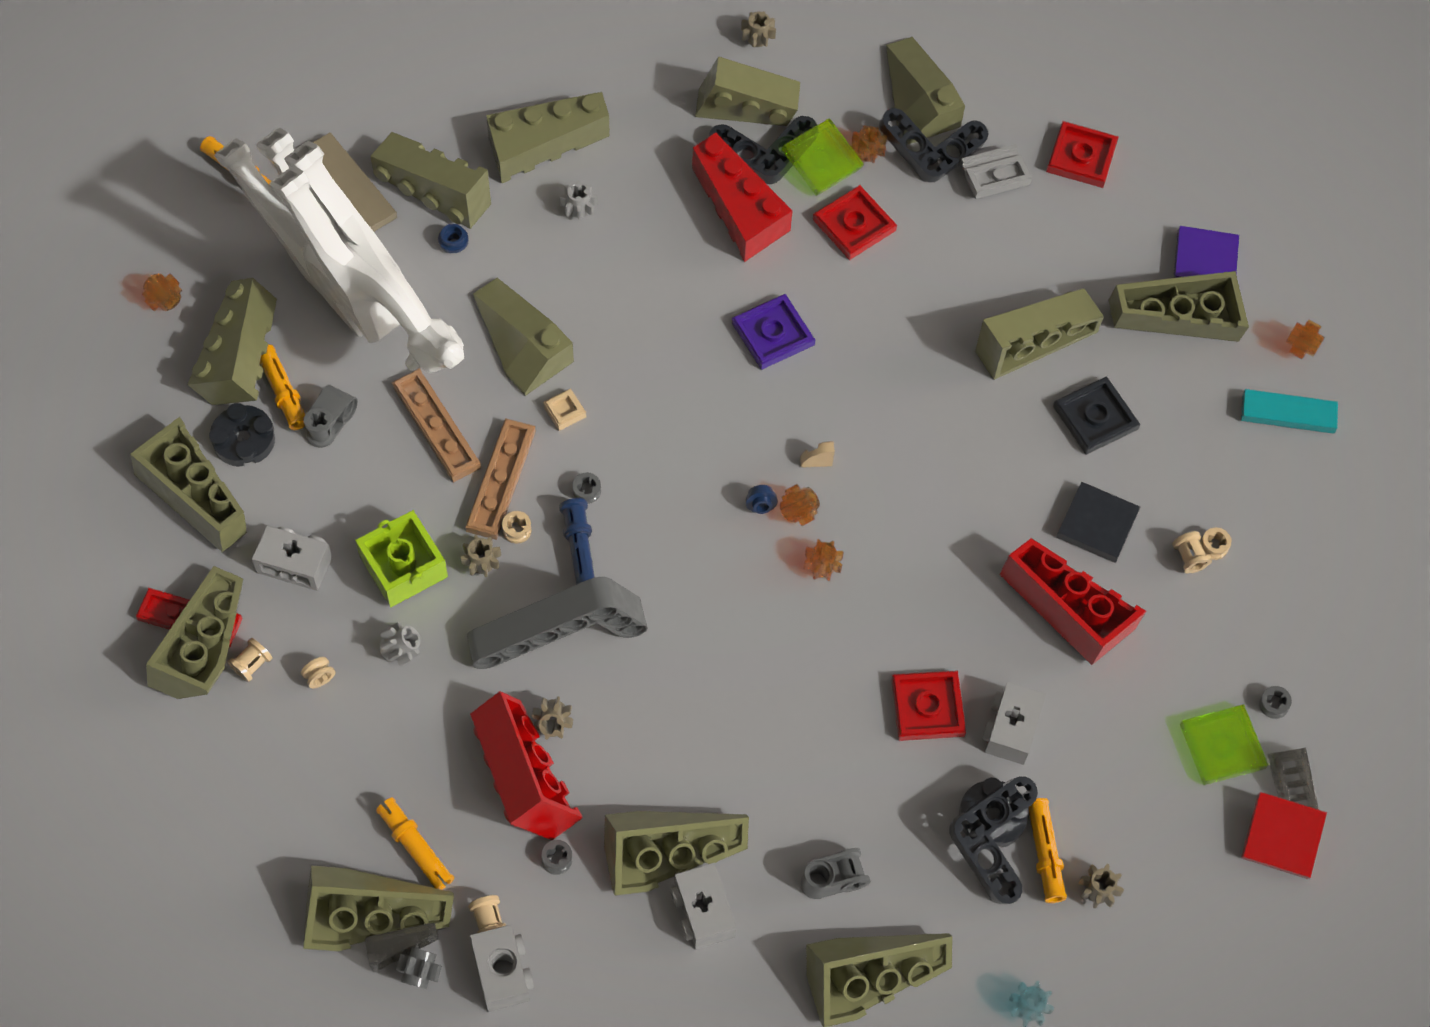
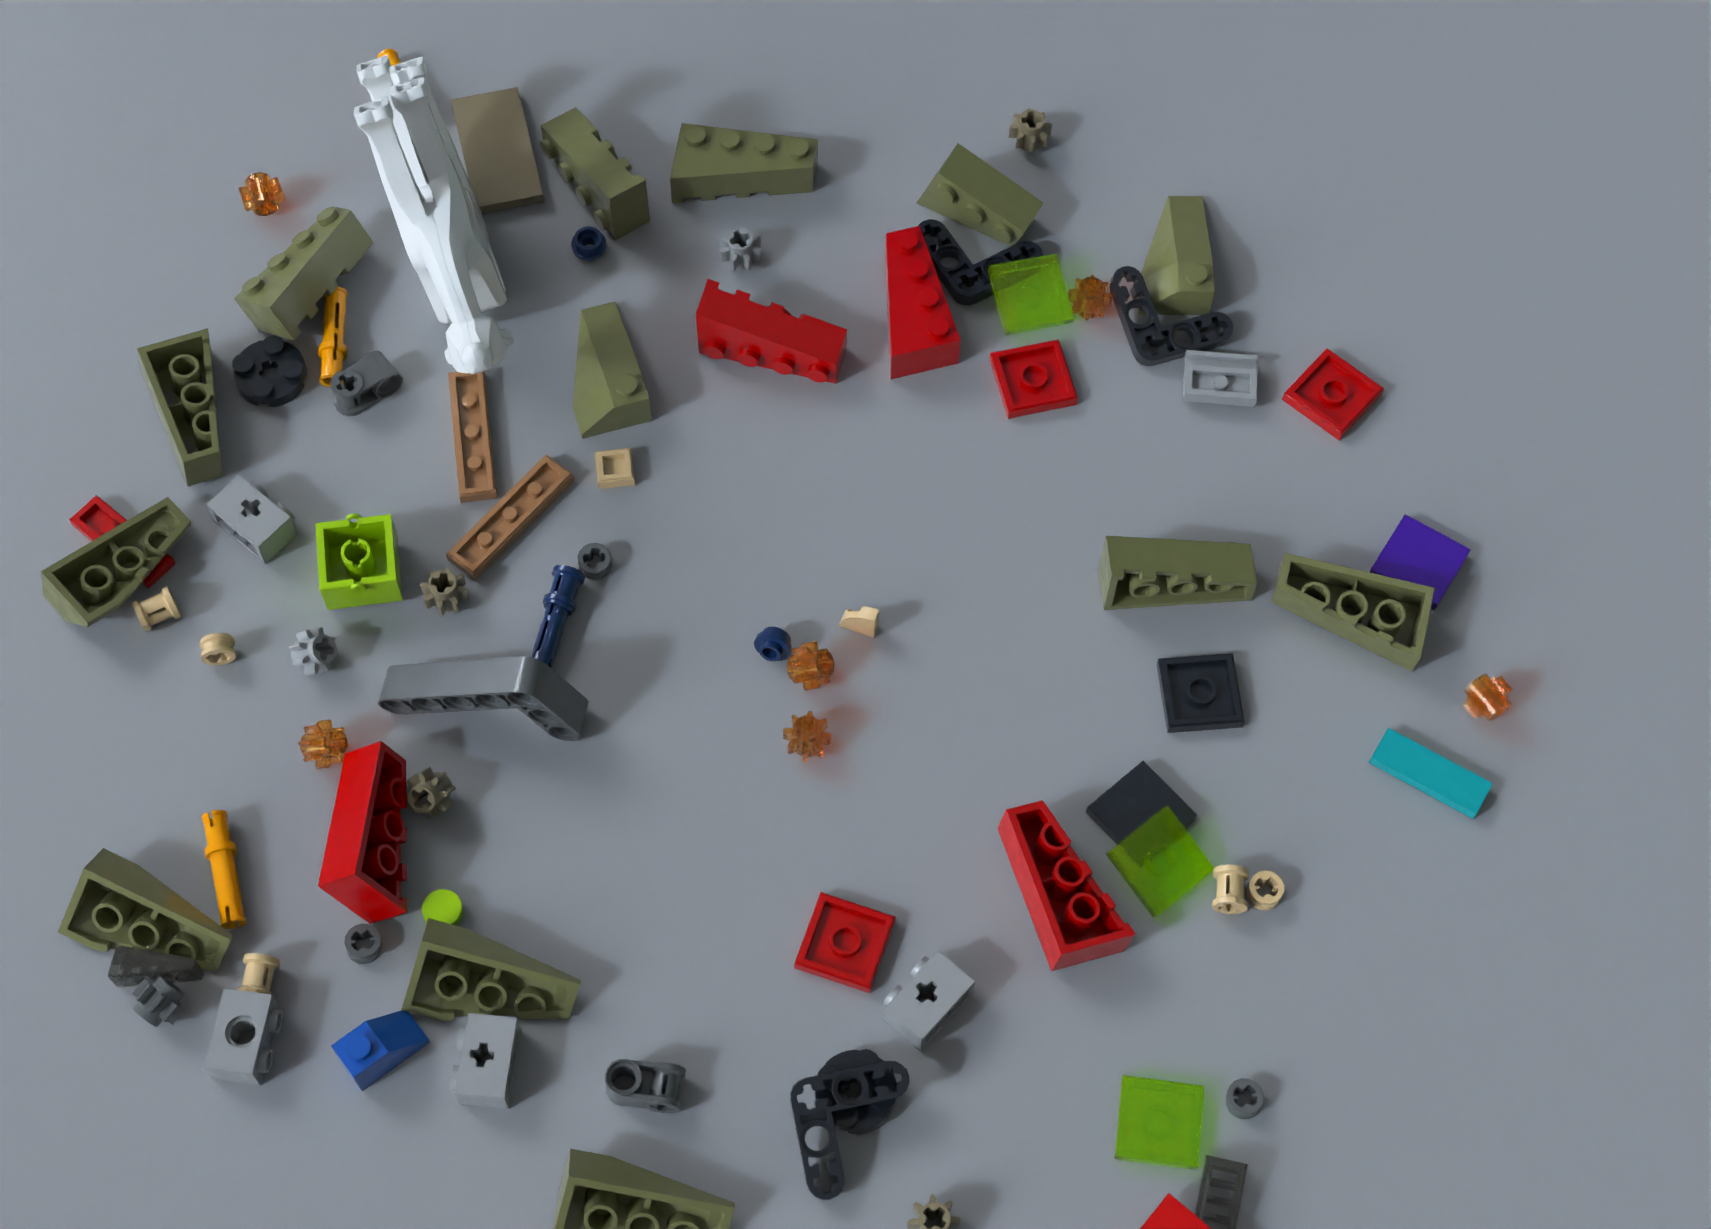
camera: 25 degrees right, 0 degrees up
(446, 713) = (323, 744): none -> clear orange gear
(523, 521) = (499, 563): tan bush -> none
(605, 802) = (443, 906): none -> lime tile
(612, 932) = (379, 1046): none -> blue slope
(638, 261) = (768, 336): none -> red wedge
(773, 331) = (882, 466): dark purple tile -> none
(1048, 861) = (880, 1202): light orange pin -> none
(1131, 551) = (1160, 861): none -> clear neon green tile

